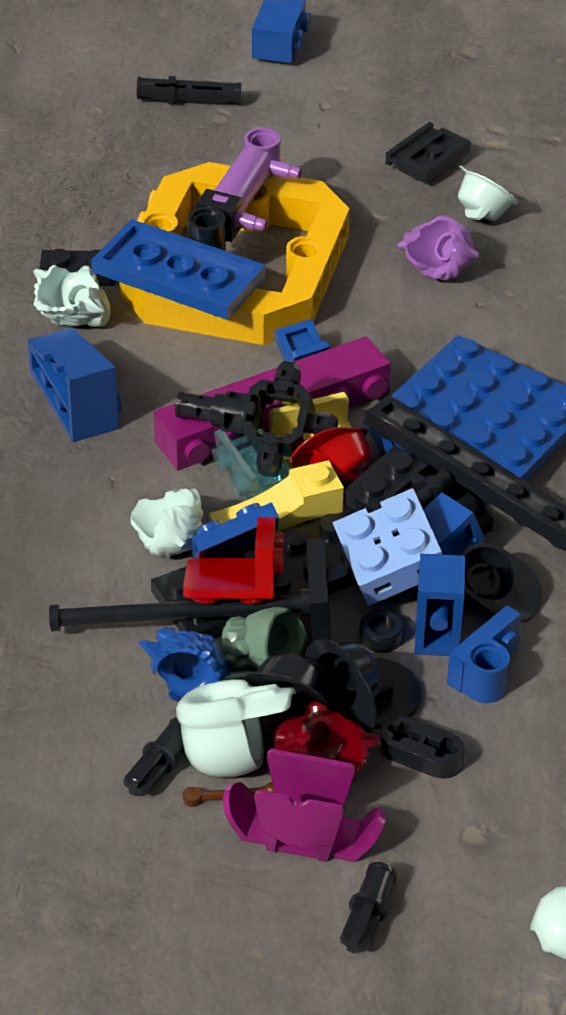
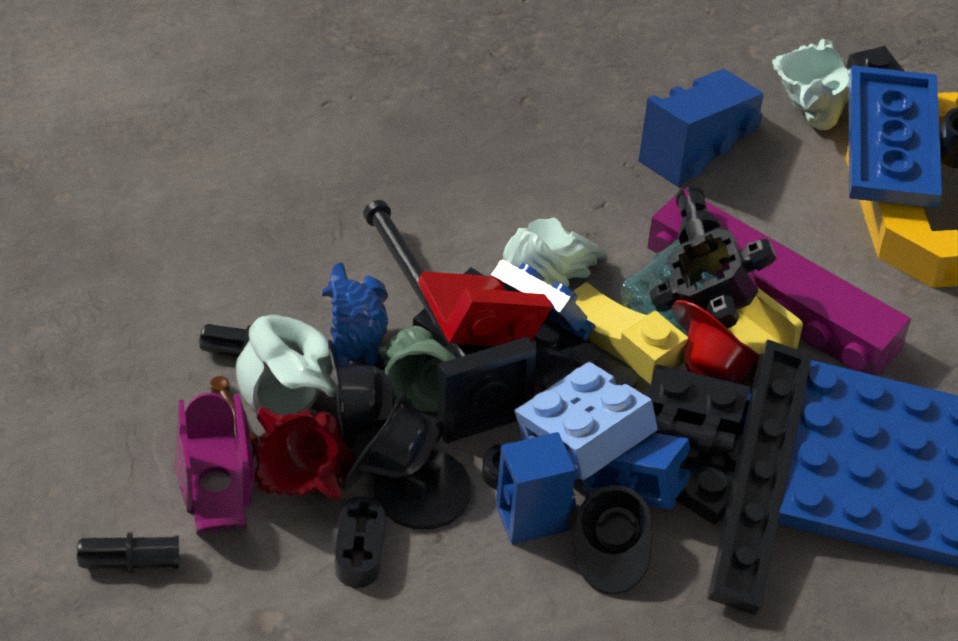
camera: 65 degrees right, 5 degrees up
(299, 341) = (879, 276): blue bracket -> none
(482, 660) = (505, 553): blue plate -> none

